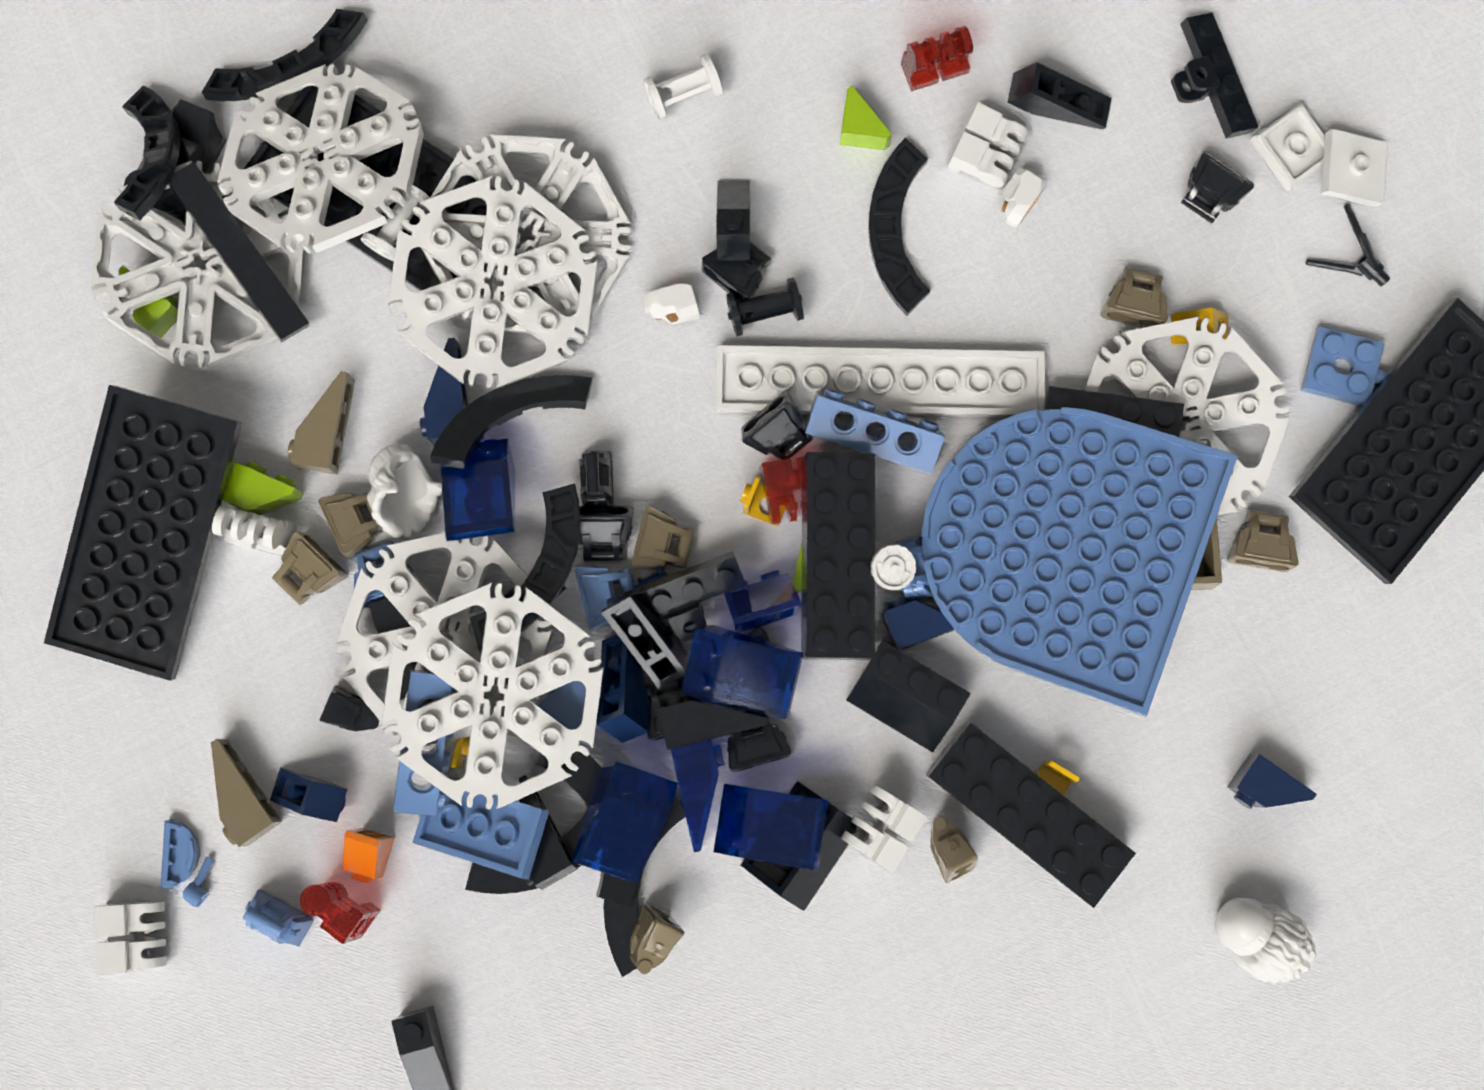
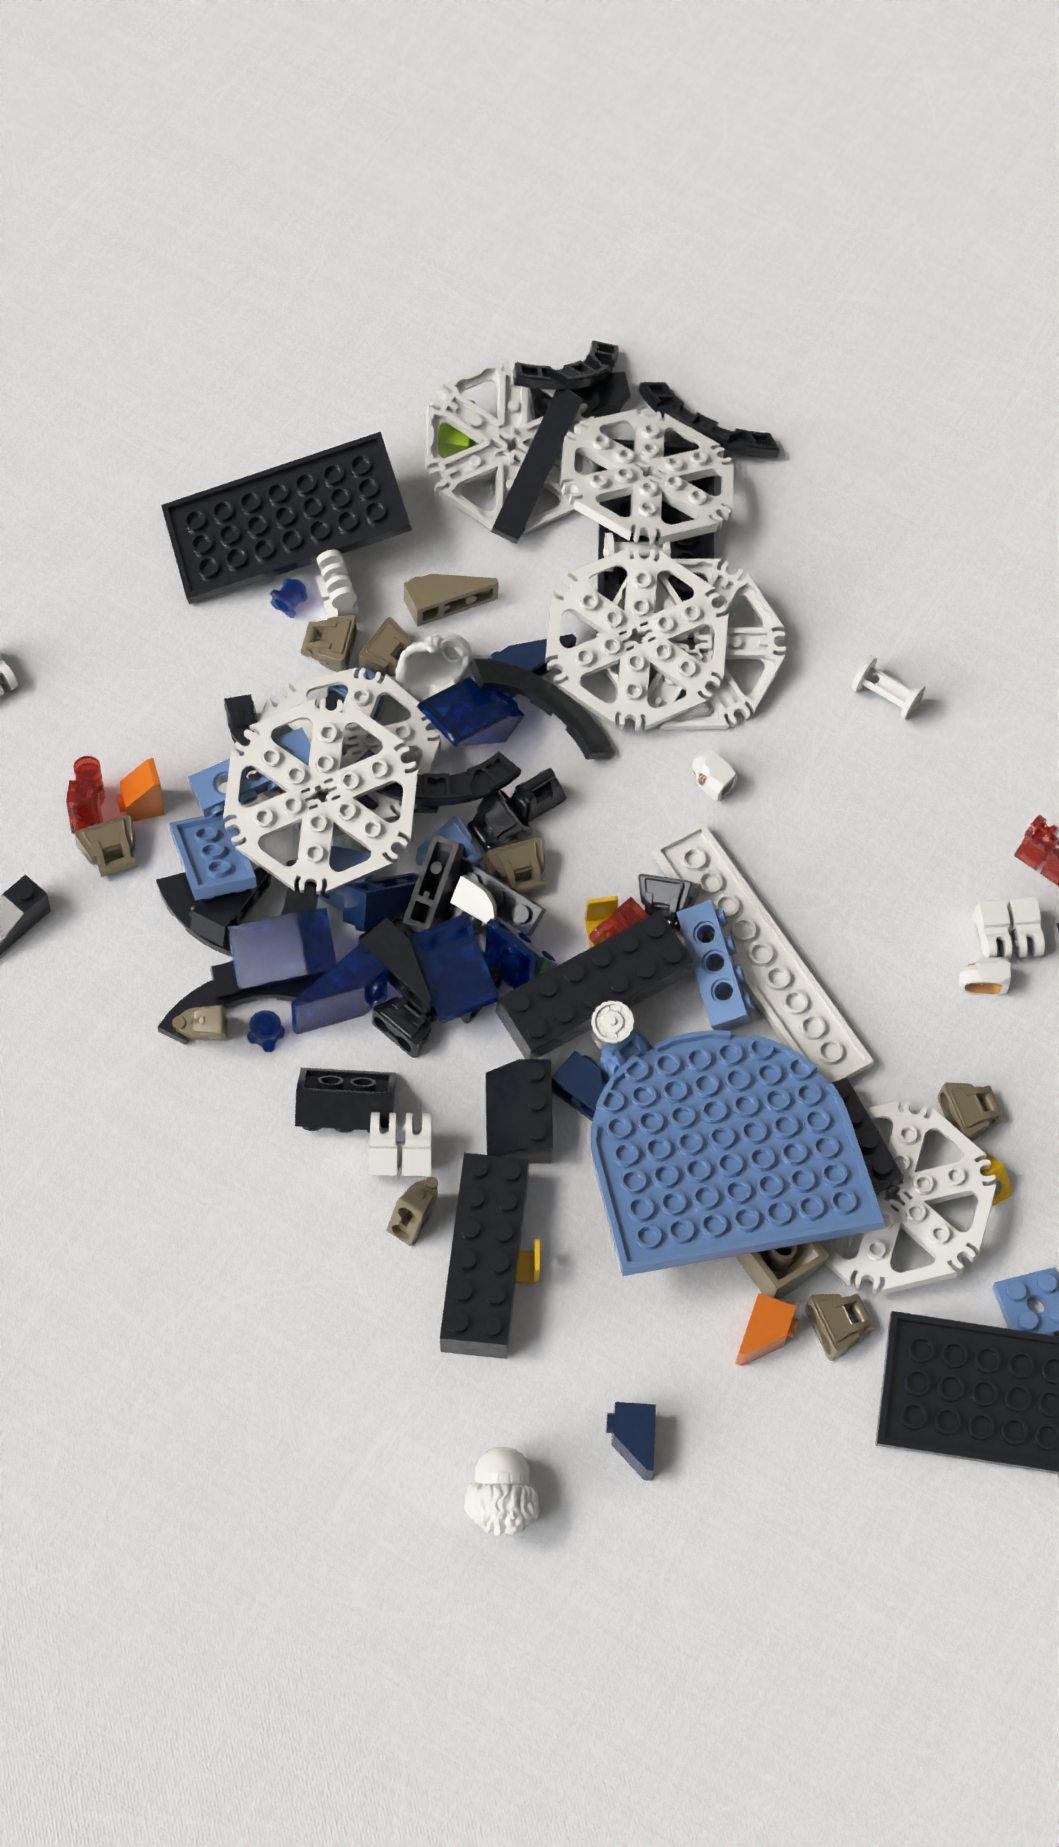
camera: 50 degrees right, 20 degrees down
(179, 855) = (58, 678): medium blue tile -> none
(193, 892) = (37, 700): medium blue hand -> none
(230, 578) = (289, 596): none -> clear blue brick
(240, 800) = (127, 691): dark tan slope -> none
(256, 492) = (368, 576): lime slope -> none
(277, 919) = (51, 764): medium blue piece -> none
(309, 795) = (161, 736): dark blue slope -> none
(397, 911) = (107, 842): none -> dark tan piece
(690, 866) = (265, 1030): none -> clear blue brick
(691, 613) = (474, 899): none -> white brick
(733, 221) = (807, 774): black slope -> none
(737, 276) = (769, 804): black piece -> none
(765, 306) = (758, 837): black hose -> none
(770, 826) = (346, 1054): clear blue slope -> none
(861, 125) = (953, 825): lime slope -> none
(885, 227) = (891, 893): black tile -> none
(1237, 611) = (767, 1328): none -> orange slope

